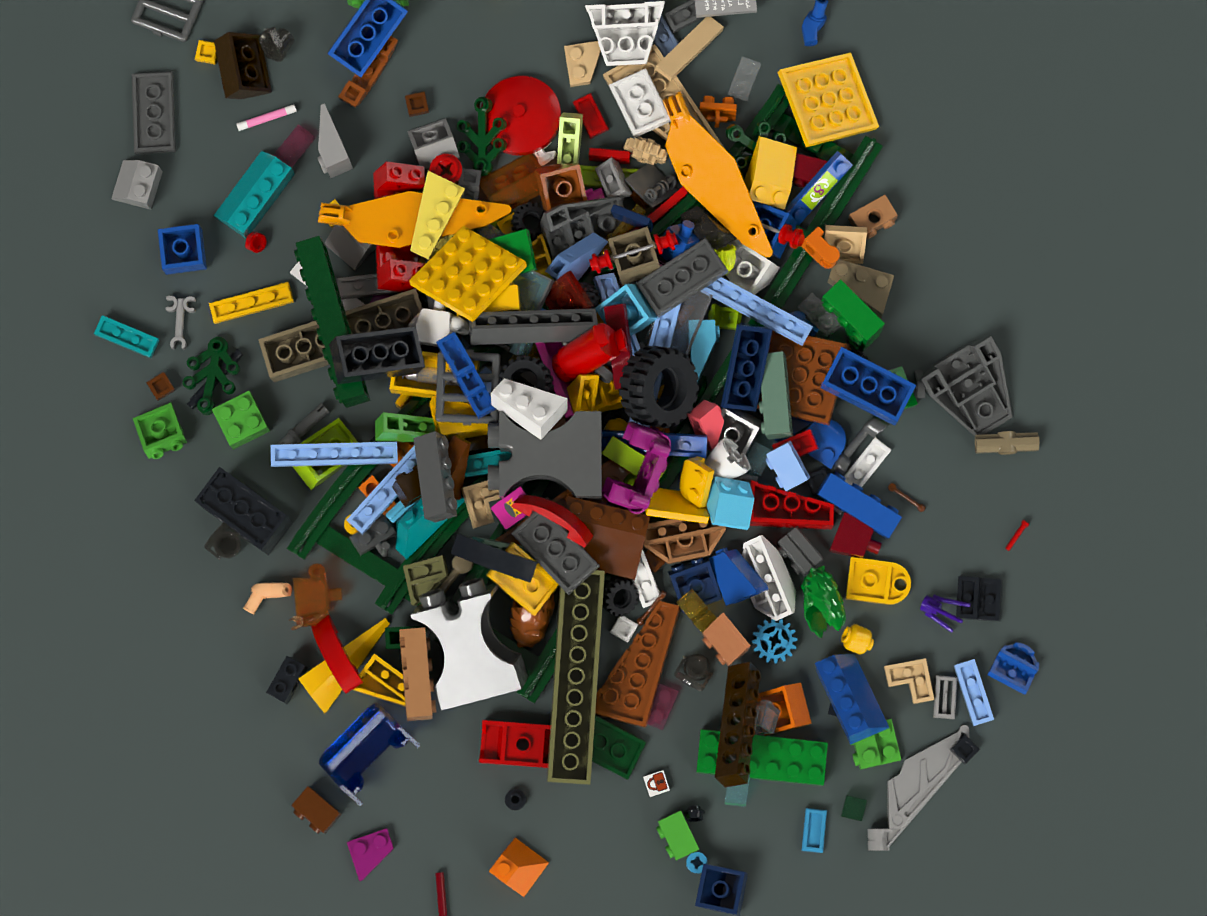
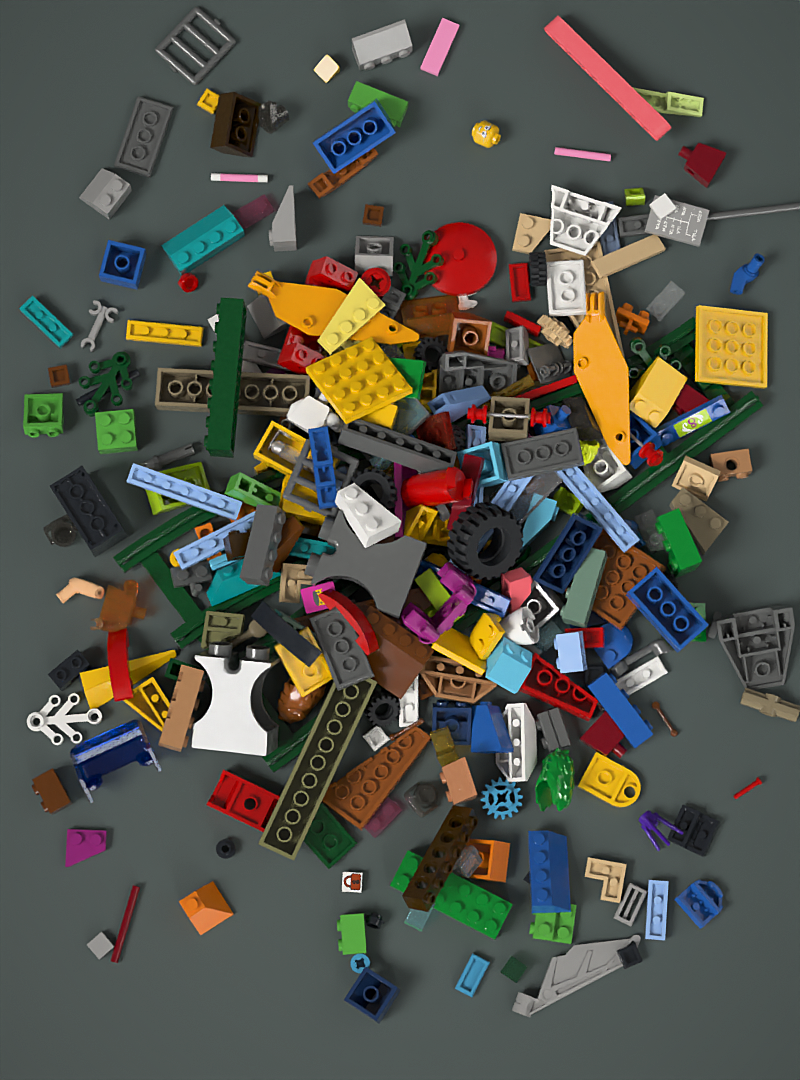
camera: 15 degrees right, 0 degrees up
(297, 733) = (60, 719): none -> white plant
(376, 355) = (252, 421): black brick -> none
(569, 138) = (493, 295): yellowish green slope -> none
(603, 94) = (537, 268): none -> black tyre
(632, 218) = (519, 385): dark blue tile -> none
(820, 250) = (672, 475): orange leg -> none
(857, 639) = (573, 825): yellow head -> none

